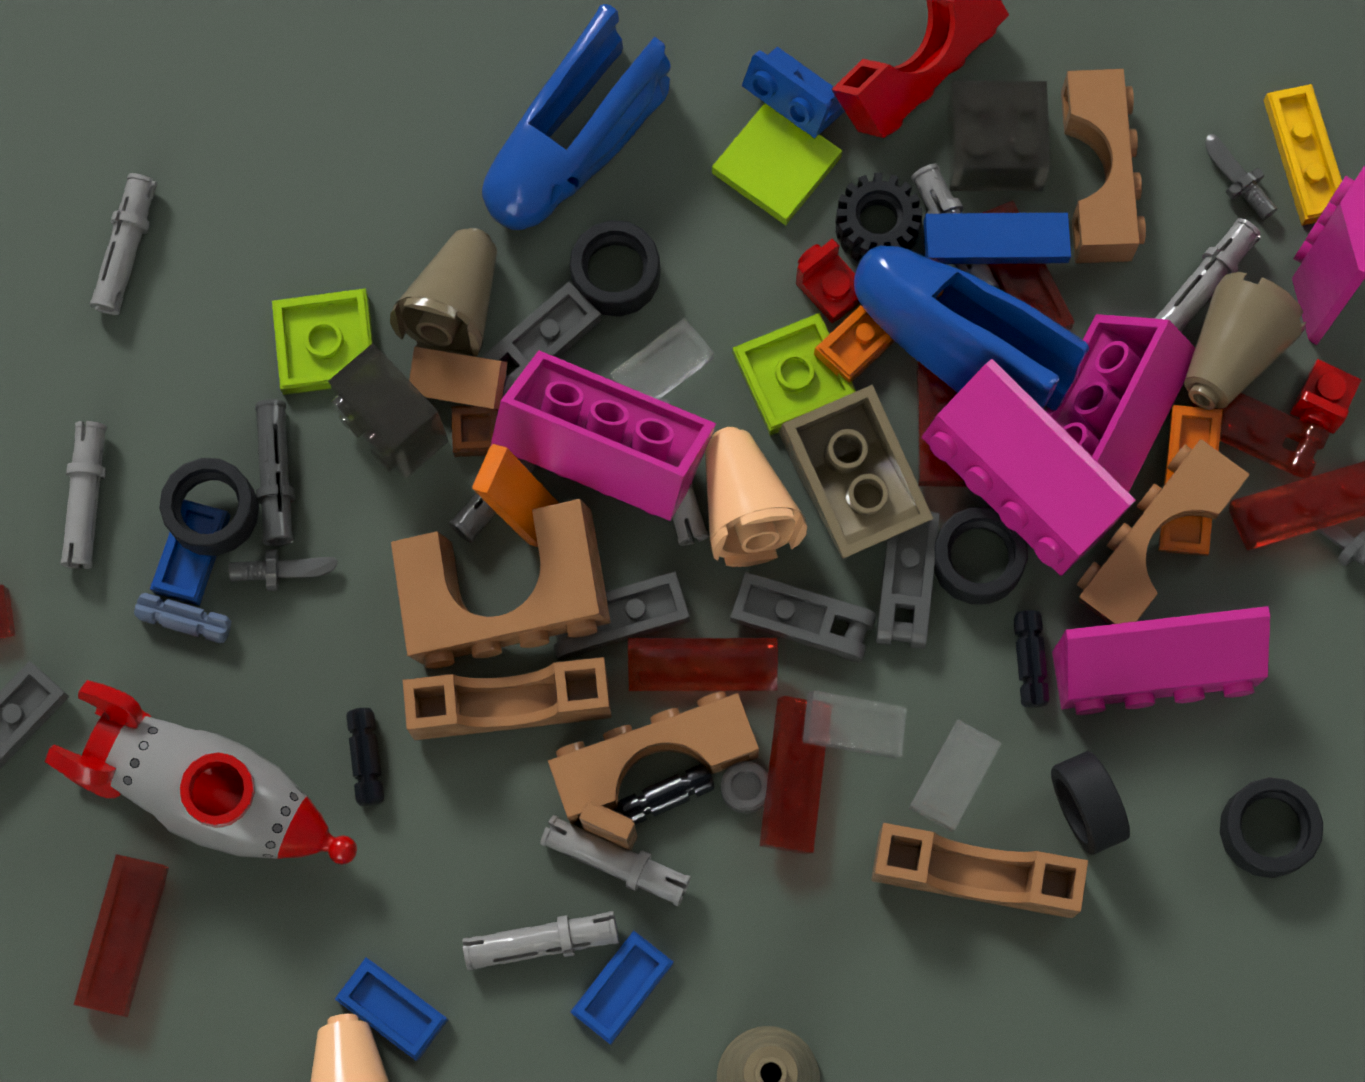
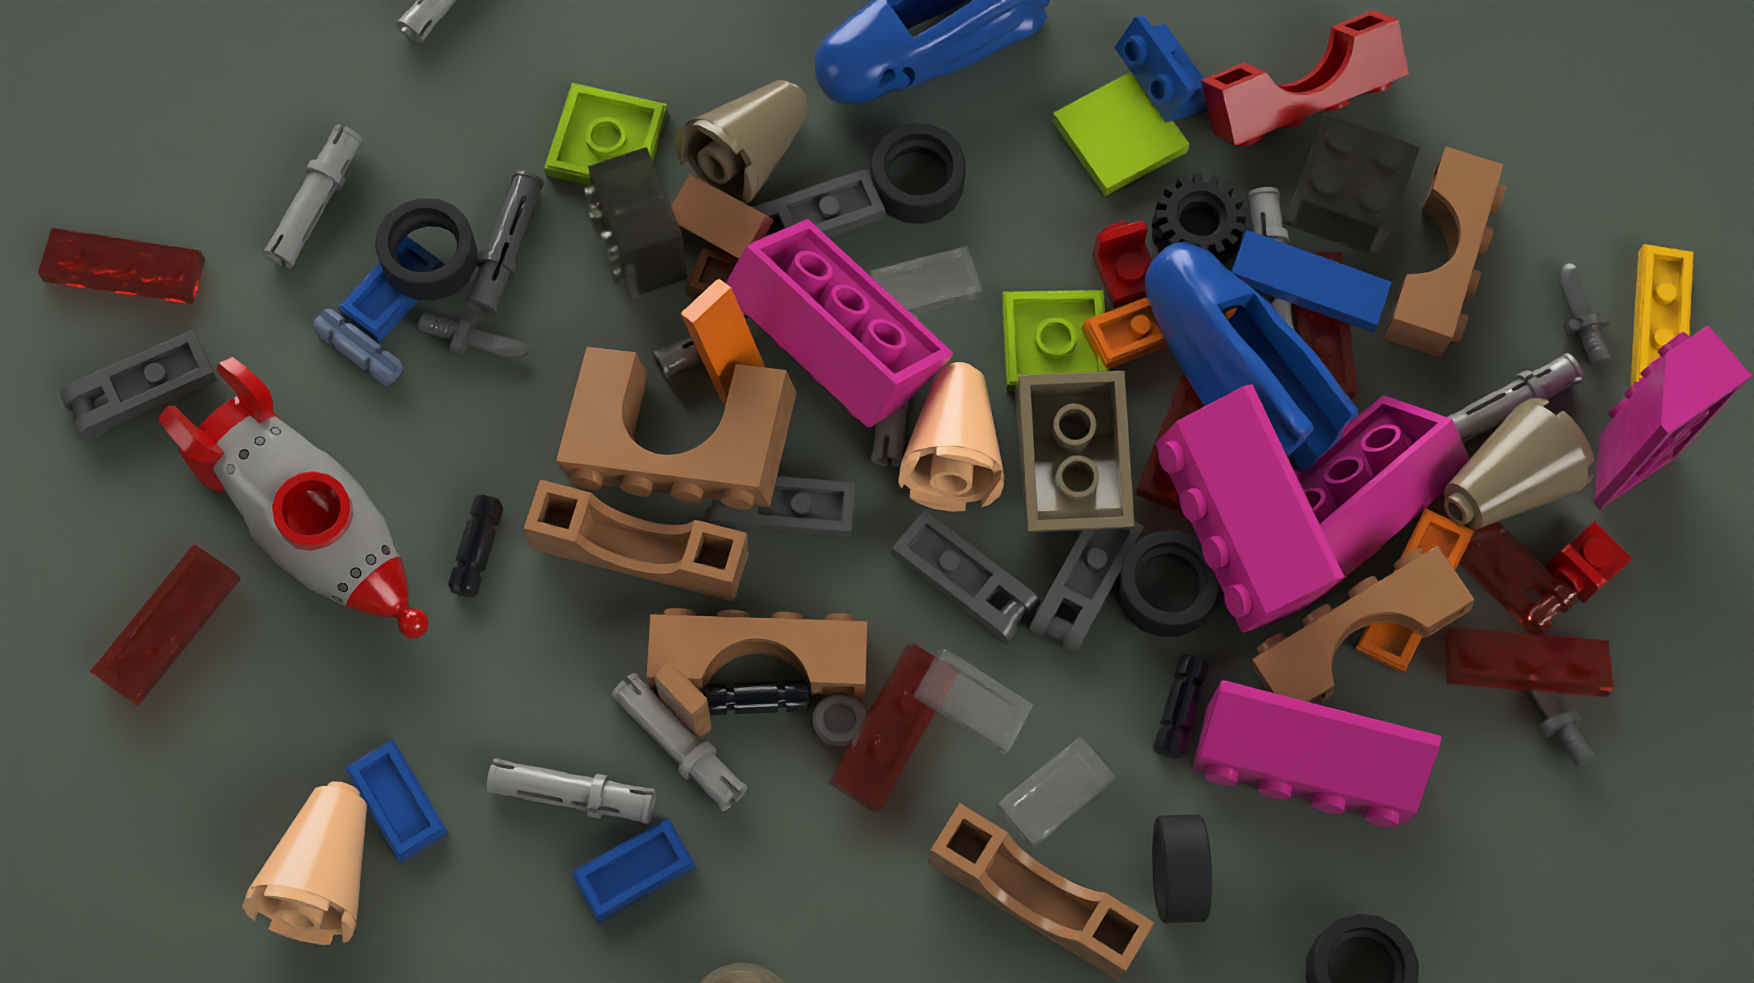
camera: 15 degrees right, 5 degrees down
(702, 664) = (845, 583): clear red plate -> none

